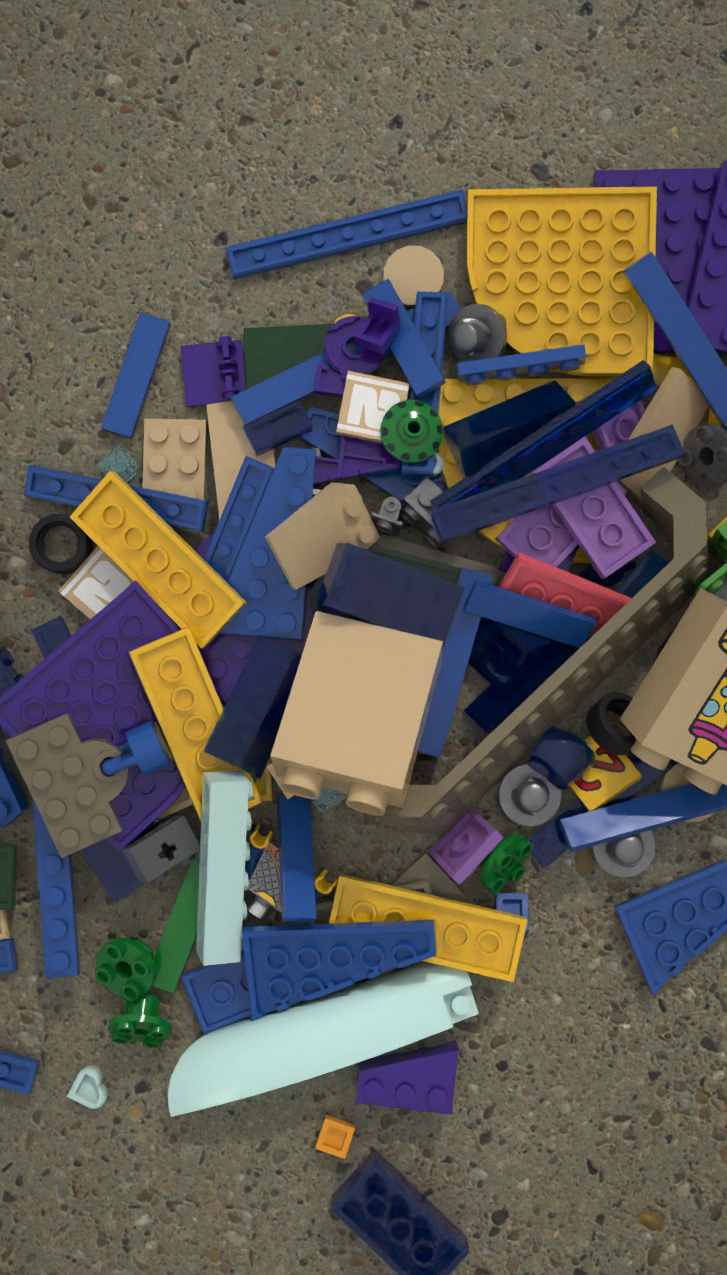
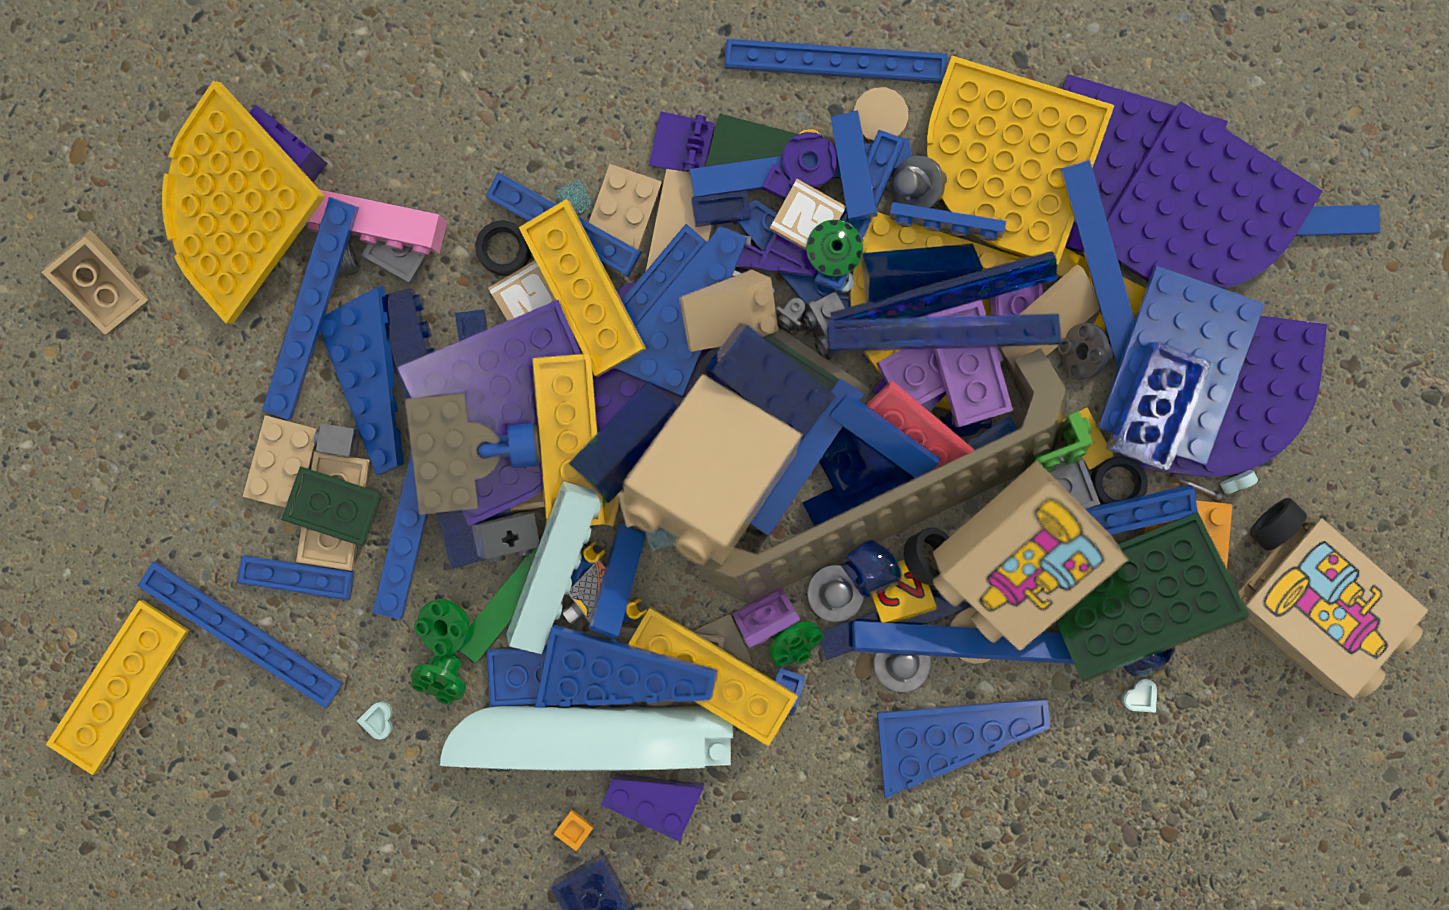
camera: 25 degrees right, 0 degrees up
(136, 375) = (614, 124): blue tile -> none
(379, 327) = (835, 150): dark purple bracket -> none

